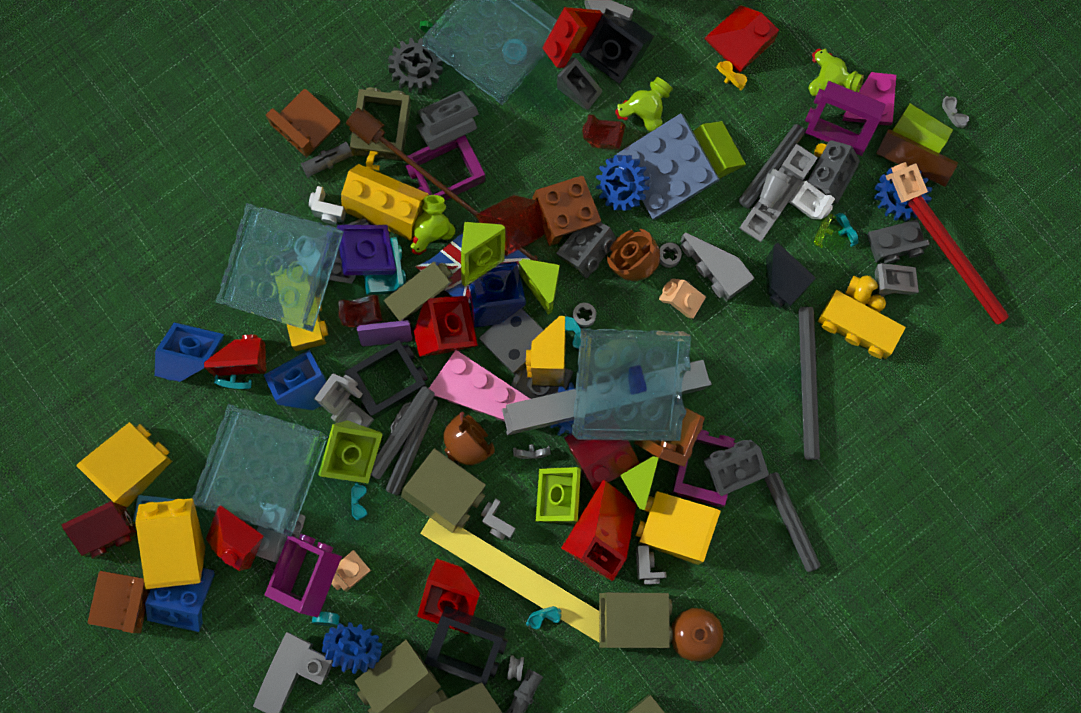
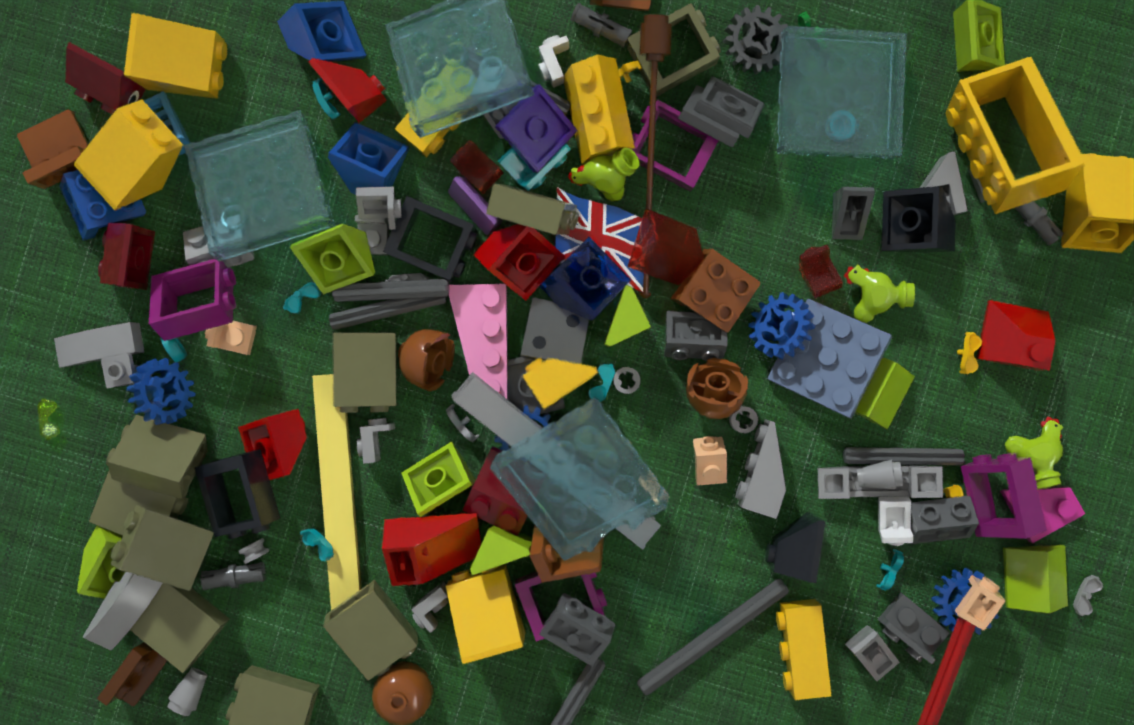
camera: 55 degrees right, 10 degrees up
(233, 539) = (175, 212): red slope -> none
(234, 604) = (126, 256): none -> dark red slope
(481, 250) = (612, 239): lime slope -> none
(570, 34) = (895, 168): red bracket -> none
(636, 380) = (584, 486): clear blue tile -> none
(823, 228) = (864, 550): clear neon green piece -> none
(861, 291) = (839, 628): yellow animal -> none
(932, 164) = (1012, 578): reddish brown tile -> none

